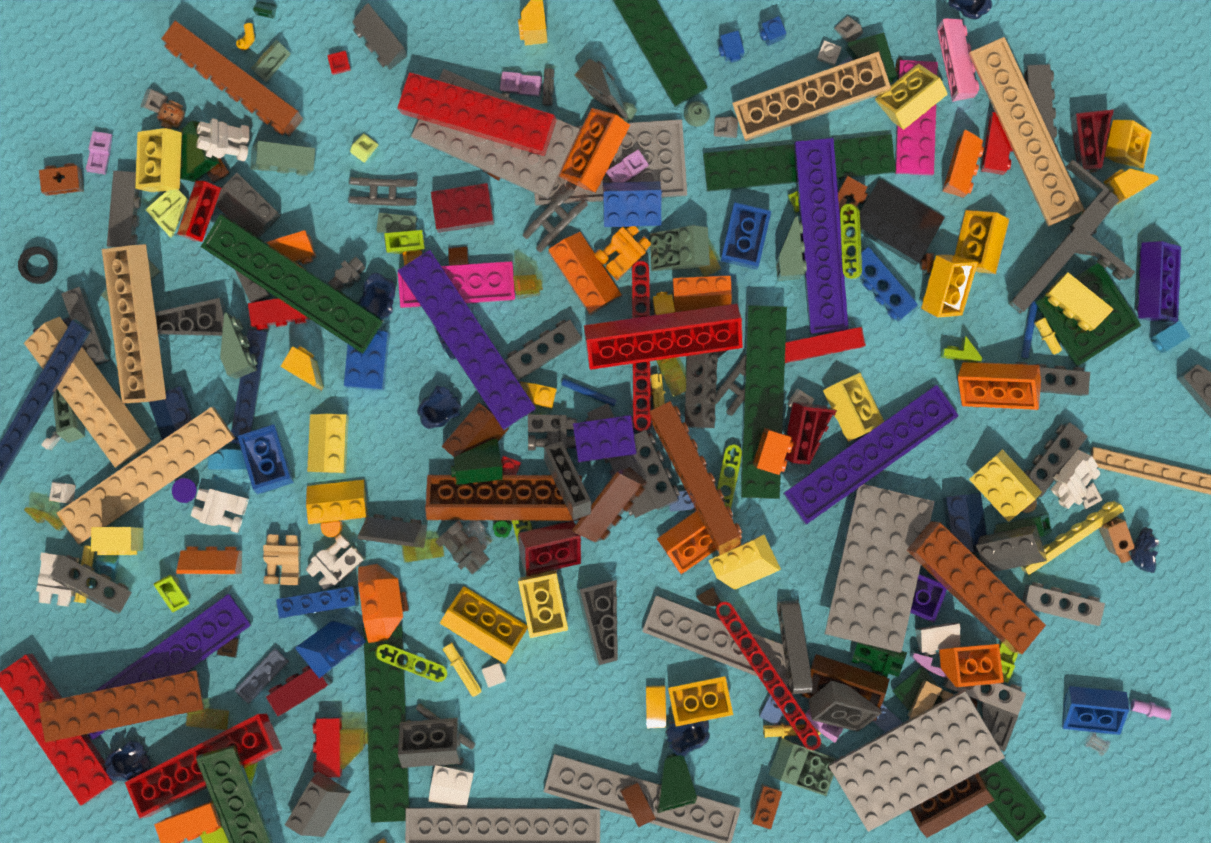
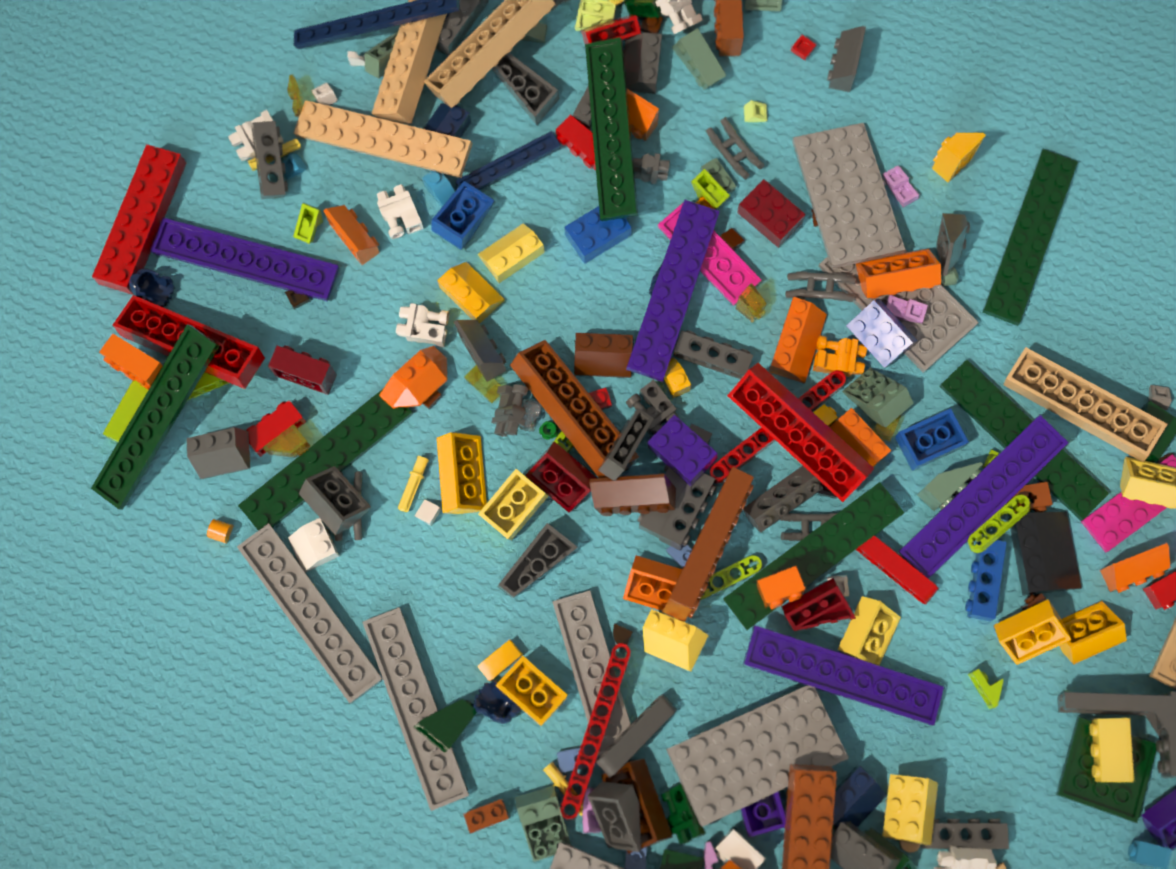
camera: 60 degrees right, 10 degrees down
(116, 540) = (316, 152): light yellow brick -> none
(121, 706) = (191, 248): dark orange brick -> none
(184, 490) = (392, 175): dark purple piece -> none
(208, 719) = (229, 320): clear yellow slope -> none
(234, 349) = (528, 127): sand green slope -> none
(261, 675) = (293, 337): sand blue tile -> none
(285, 555) = (399, 285): tan hips -> none
(301, 364) = (556, 185): yellow slope -> none
(317, 602) = (381, 333): blue brick -> none
(330, 647) = (352, 367): blue slope -> none
(331, 529) = (448, 302): light orange brick -> none
(378, 295) = (654, 201): dark blue hair -> none
(410, 665) = (384, 440): lime beam -> none
(438, 408) = (603, 310): dark blue hair -> none
(477, 114) = (851, 167): red brick -> none
(478, 464) = (584, 370): dark green slope -> none
(548, 87) = (915, 207): dark grey axle -> none
(588, 392) = (708, 415): blue bar -> none
(637, 804) = (408, 705): reddish brown slope -> none
(657, 390) = (752, 467): light yellow axle -> none
(673, 375) = (776, 468): clear yellow slope -> none
(699, 118) = (992, 331): sand green cone -> none
(726, 127) = (1001, 361): light grey slope -> none
(731, 47) = (1066, 316): blue brick -> none
(772, 31) = (1106, 338): blue brick -> none
(829, 53) = (1128, 394): white plate -> none
(1000, 385) = (988, 739): orange slope -> none
(1029, 331) = (1051, 731): blue bar -> none
(1048, 335) = (1061, 749): light yellow axle -> none
(1079, 377) = (1003, 756): dark grey brick -> none

